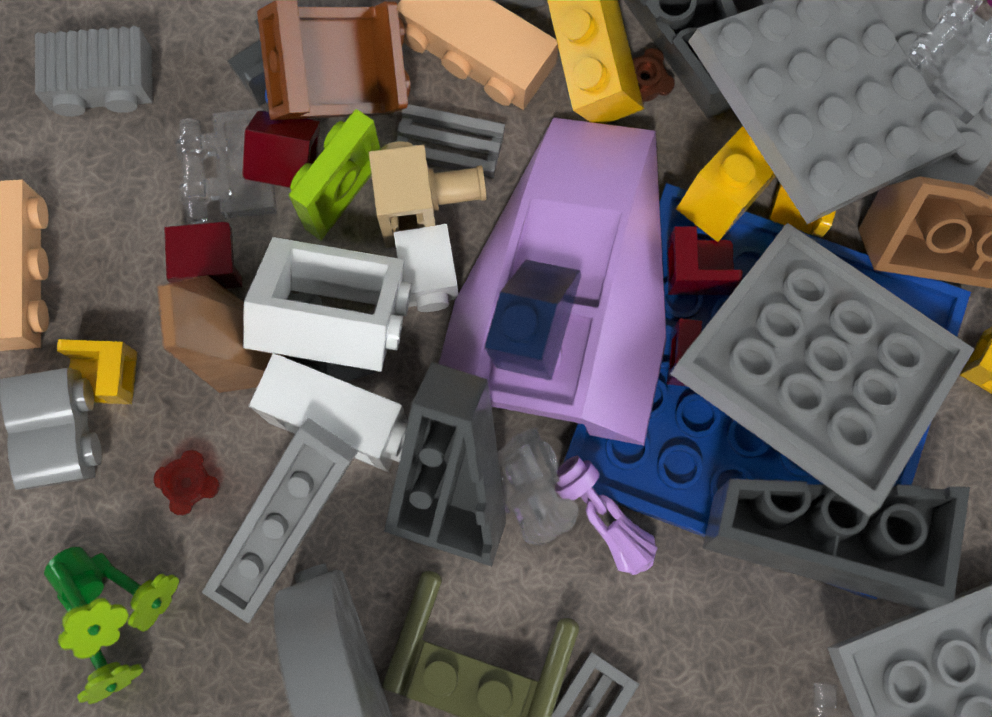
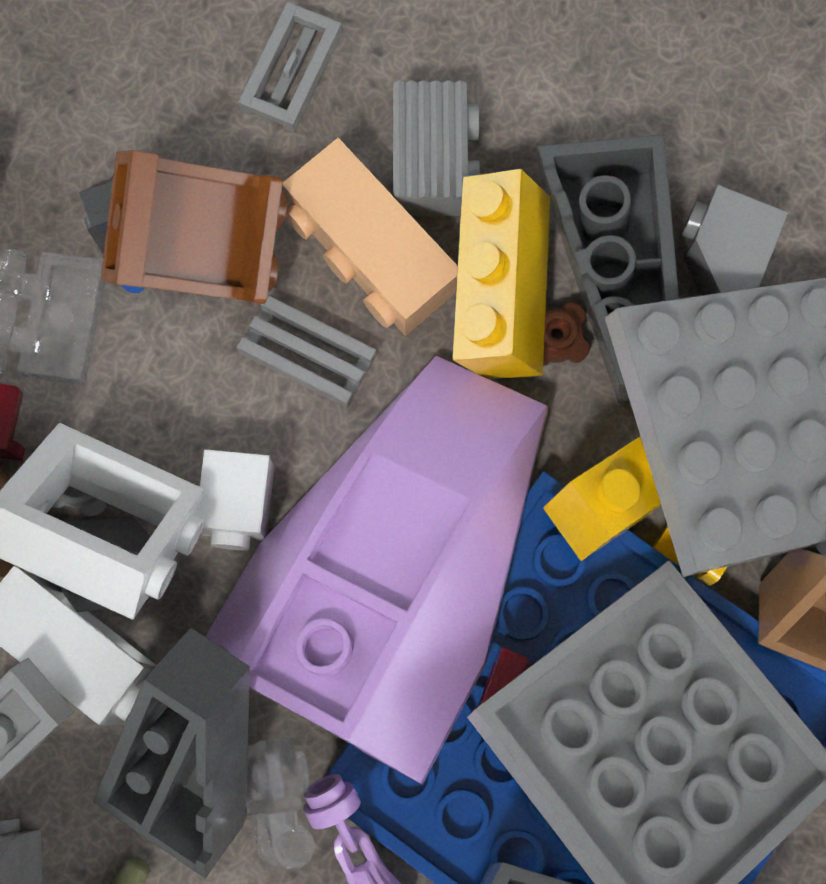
camera: 15 degrees right, 0 degrees up
(278, 148) = (105, 318): dark red panel -> none
(331, 183) = (158, 365): lime plate -> none
(410, 191) = (234, 406): tan brick -> none
(532, 319) = (325, 604): dark blue slope -> none
(700, 265) = (553, 583): dark red panel -> none

